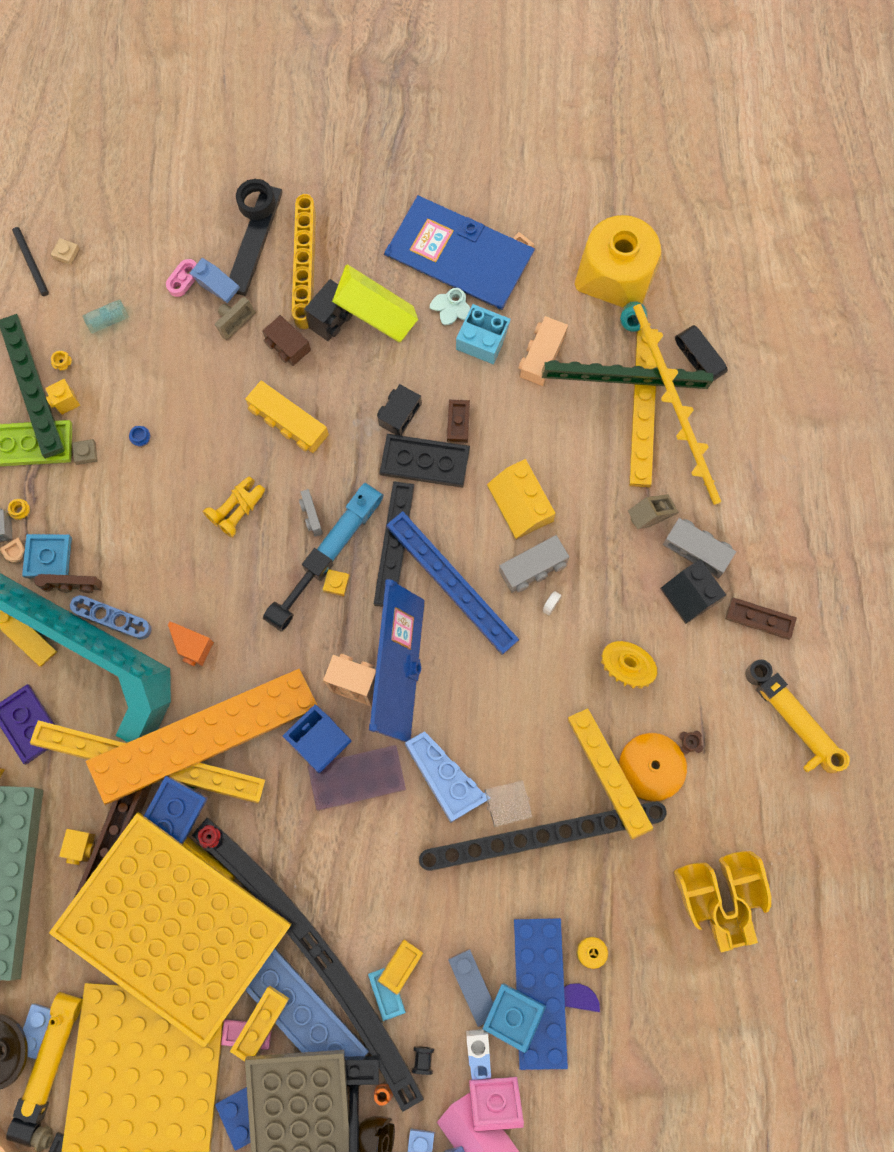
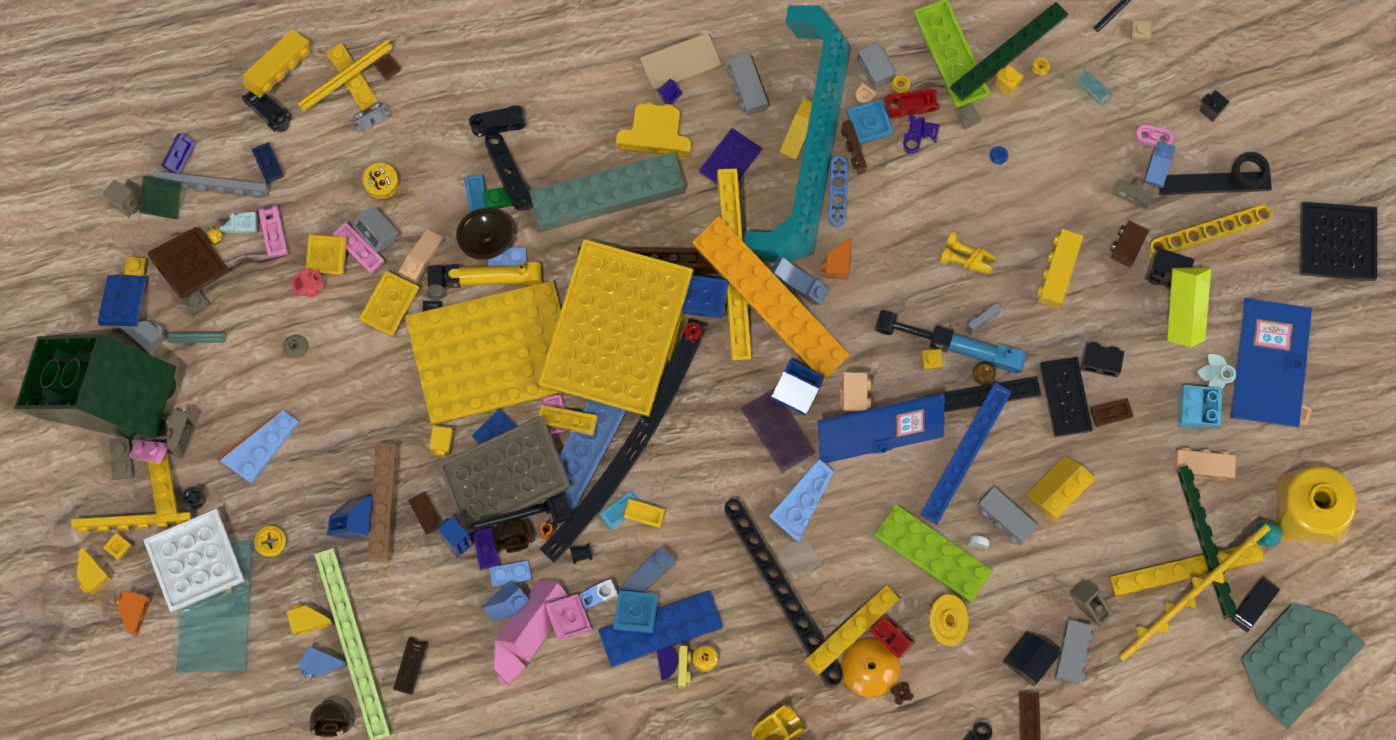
camera: 65 degrees right, 0 degrees up
(44, 504) = (911, 103): none -> red piece
(77, 846) = (651, 235): yellow brick -> none
(78, 505) = (920, 130): none -> dark purple piece
(173, 210) = (1213, 105): none -> black brick
(196, 695) = (799, 282): none -> sand blue slope
(358, 148) = (1338, 241): none -> black plate
(370, 540) = (978, 375): none -> pearl gold plate
(547, 655) = (933, 553): none -> lime plate
(603, 983) = (683, 675): none -> light yellow plate
(630, 730) = (892, 637): none -> red brick
(768, 335) = (1298, 660): none -> sand green plate

